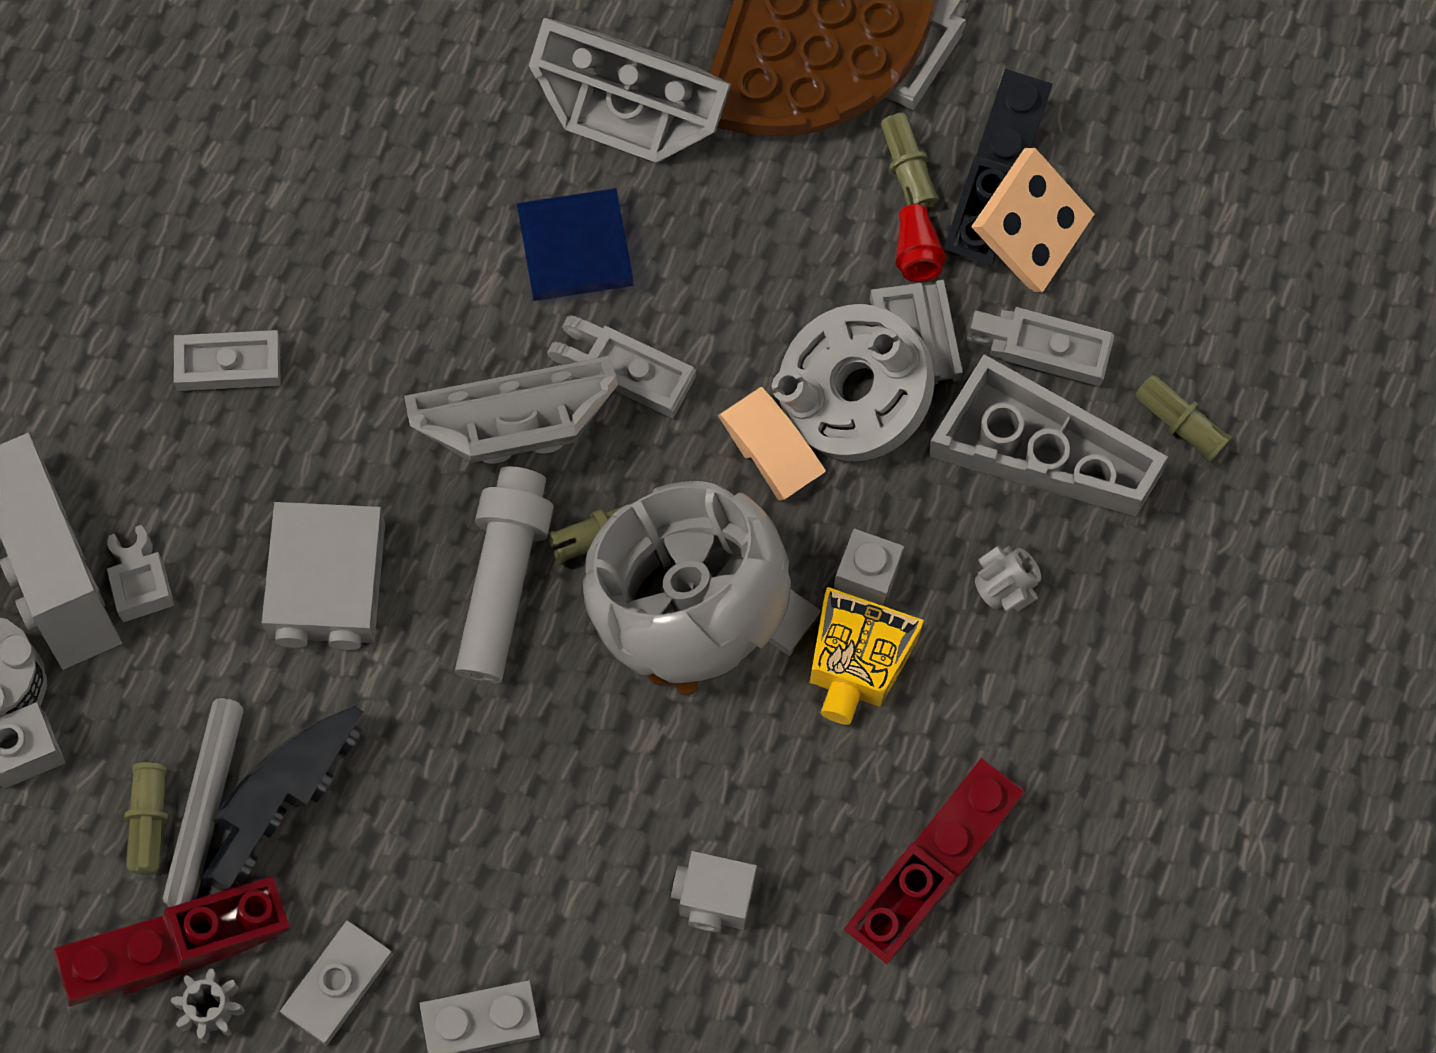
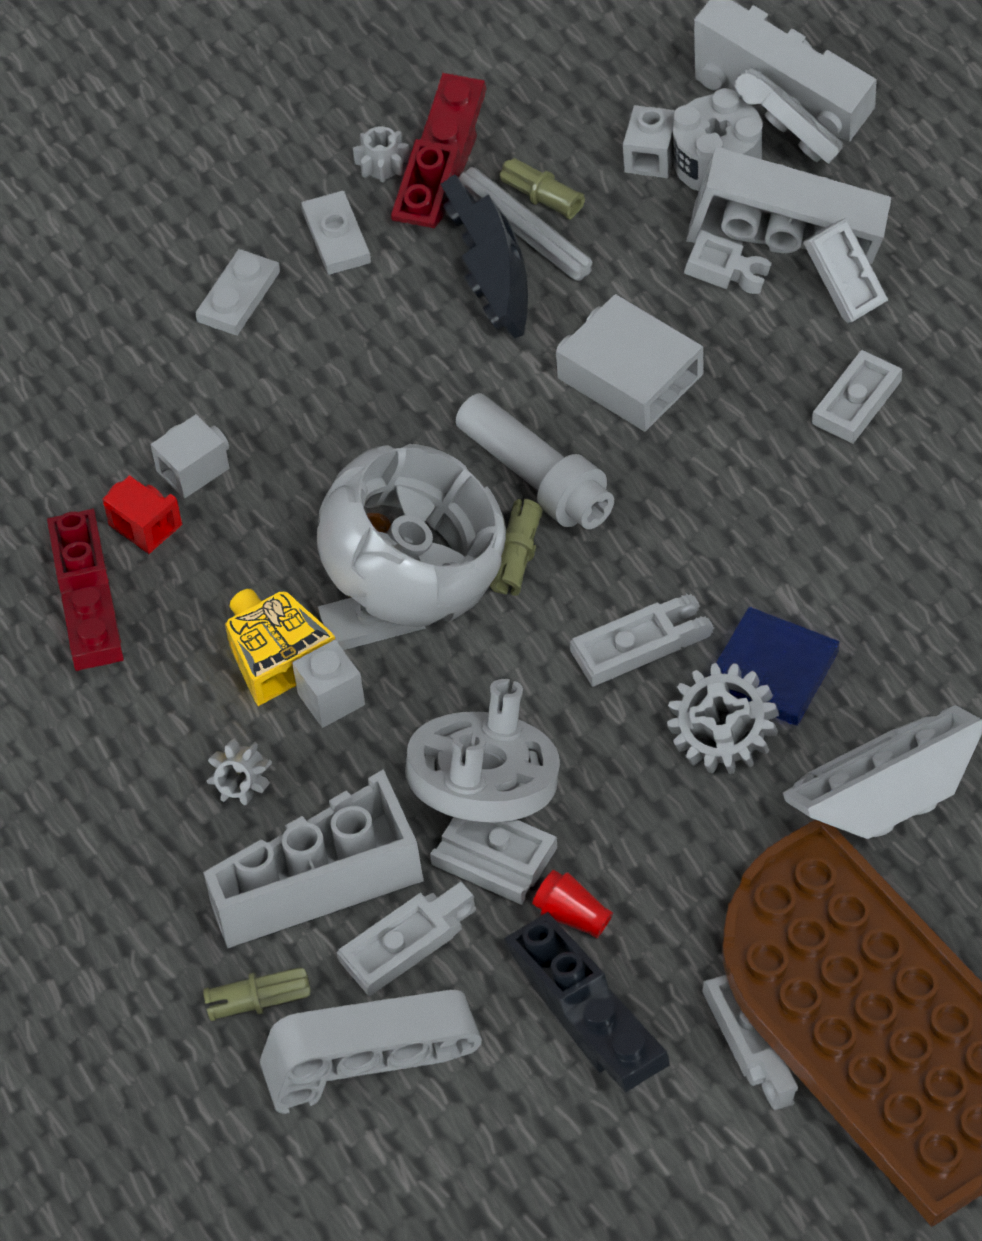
camera: 135 degrees right, 15 degrees down
(87, 448) = (845, 270): none -> light grey plate
(514, 411) = (647, 515): light grey wedge -> none
(664, 237) = (742, 717): none -> light grey gear
(772, 443) = (469, 687): light nougat slope -> none
(813, 885) = (141, 513): none -> red brick
(908, 161) = (652, 948): olive axle -> none
(1033, 220) = (513, 985): light nougat tile -> none
(1170, 287) = (364, 1040): none -> light grey beam

